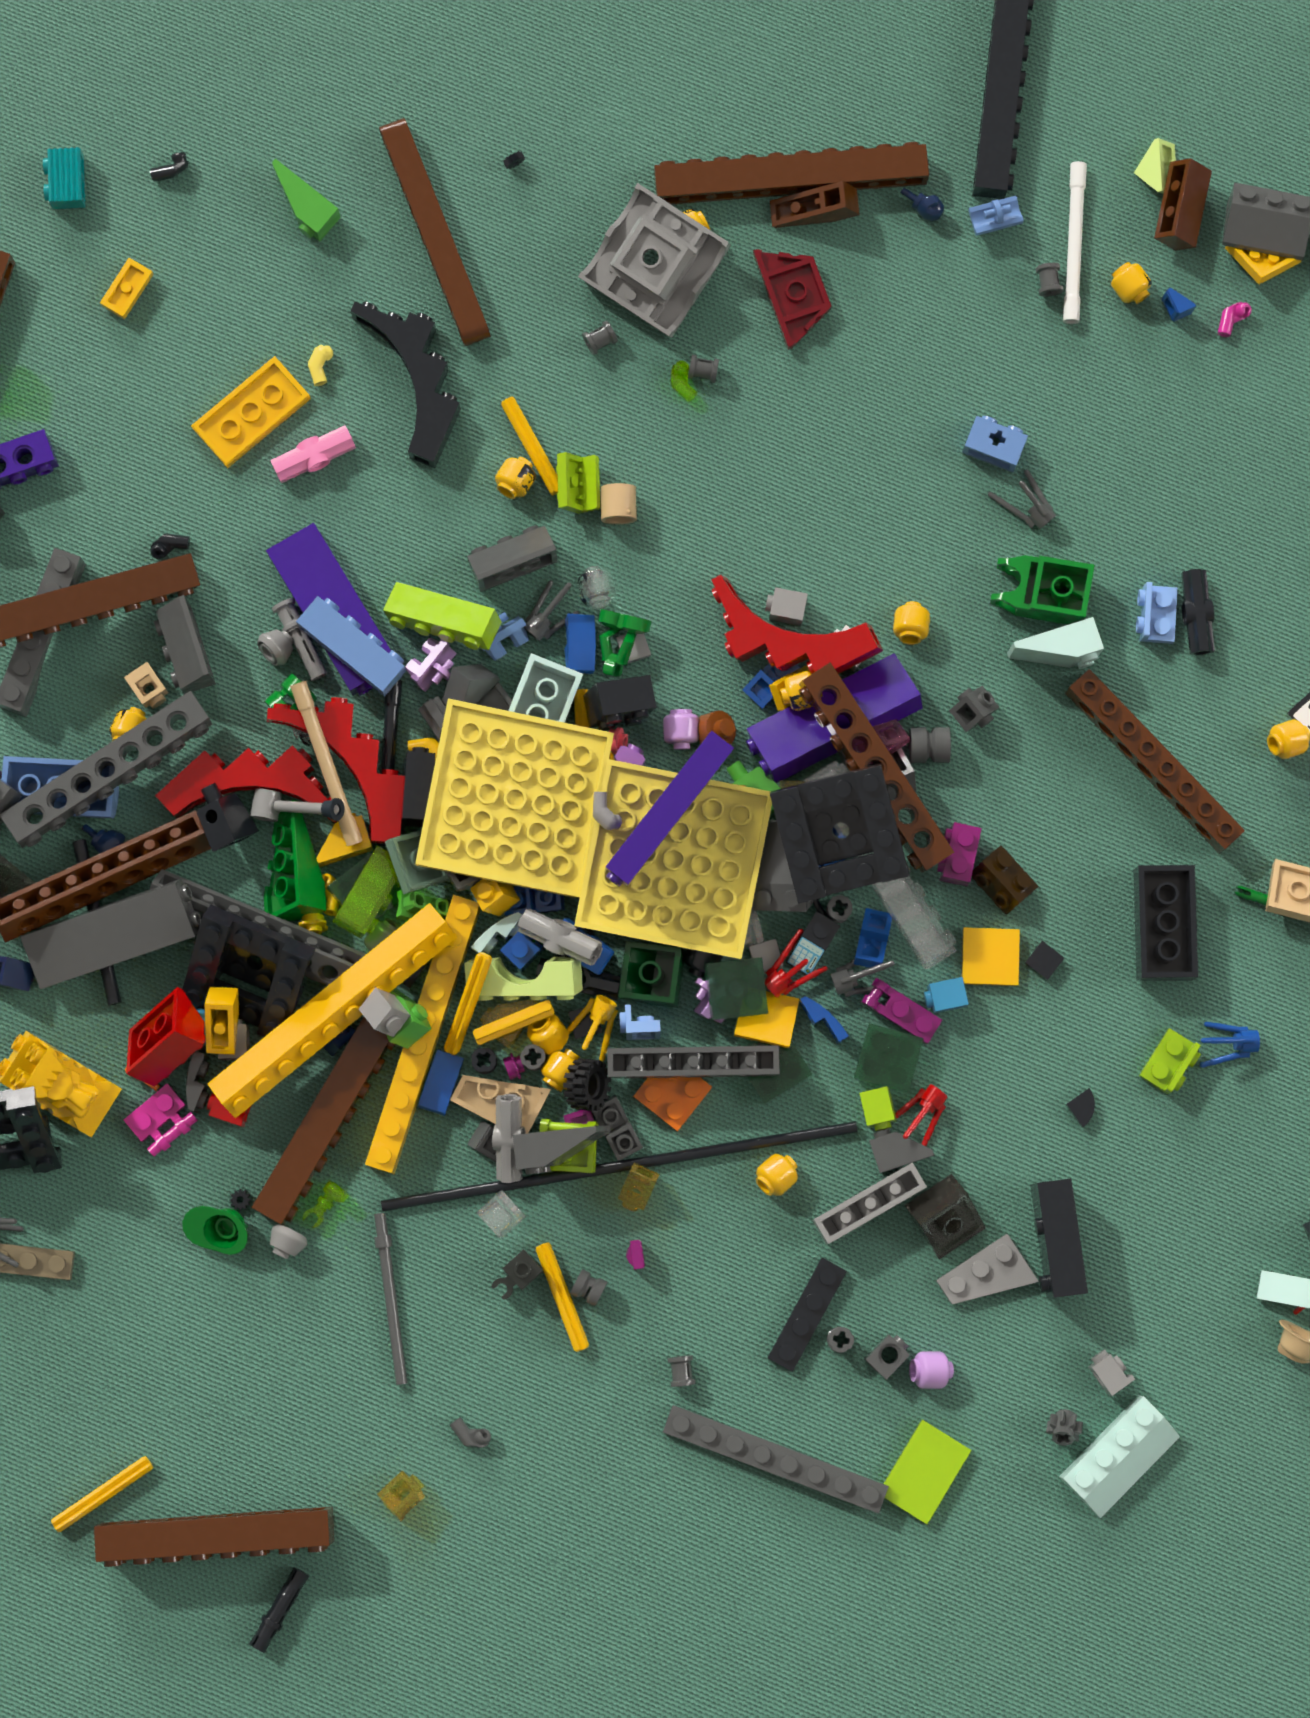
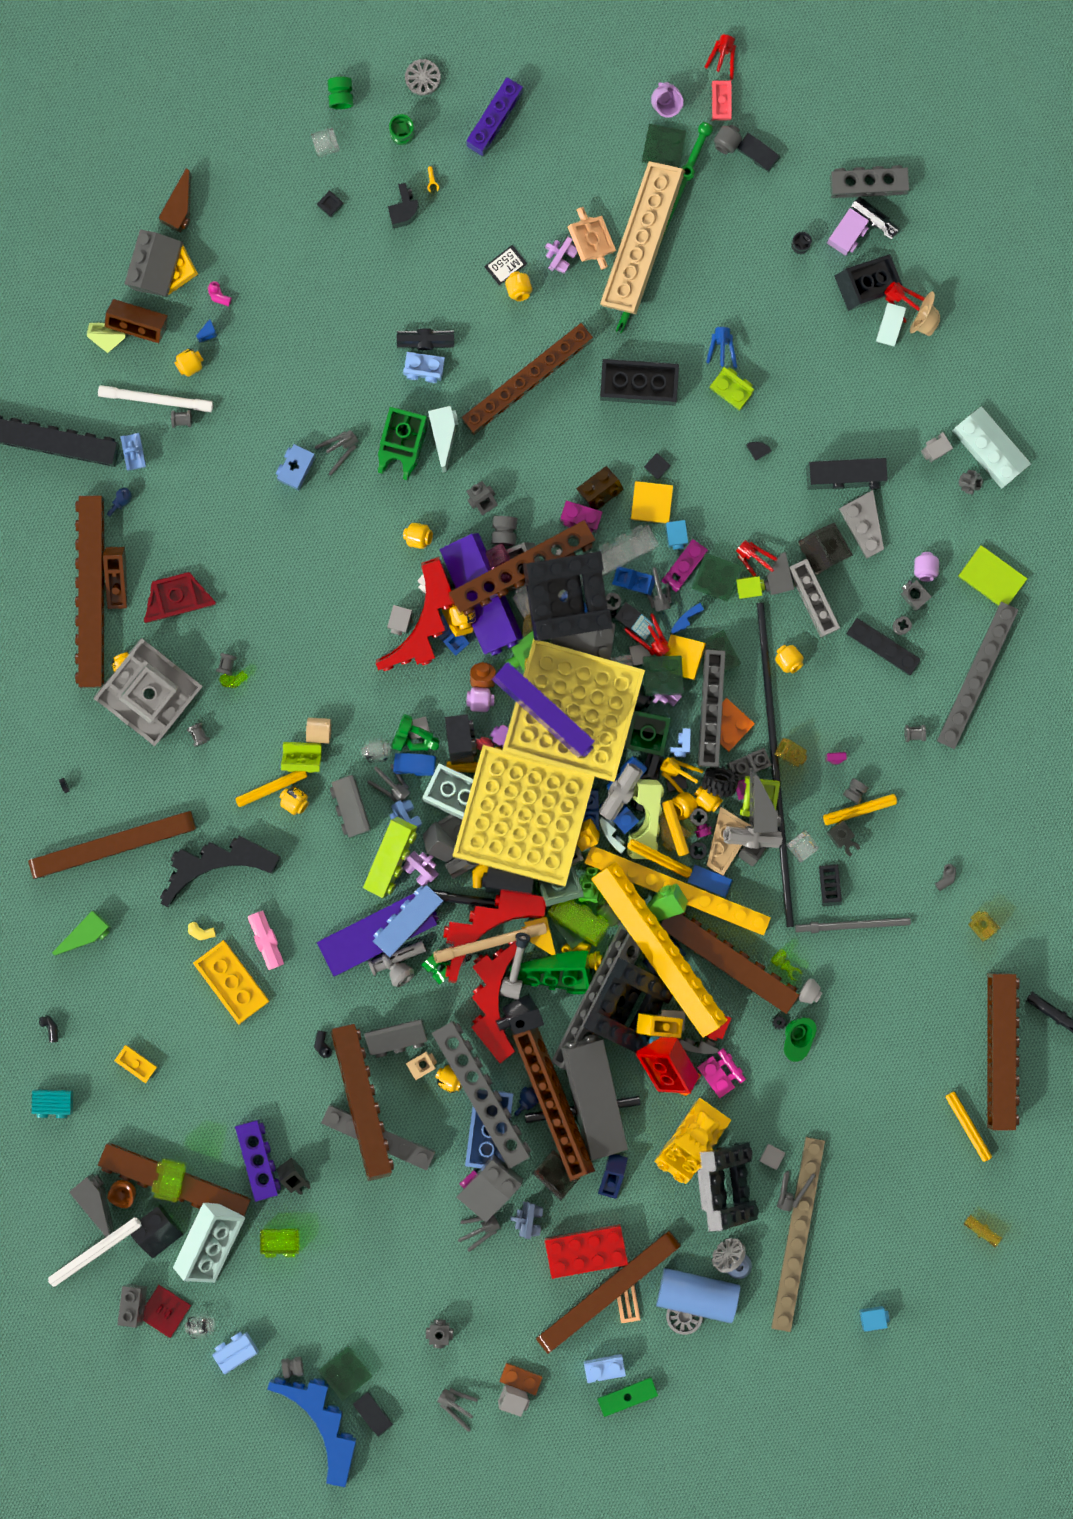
camera: 80 degrees left, 5 degrees up
(42, 1204) = (772, 1156): none -> light grey tile
(384, 1012) = (664, 913): light grey brick -> none
(423, 1266) = (831, 901): none -> black slope
(602, 814) = (542, 755): light grey arm -> none

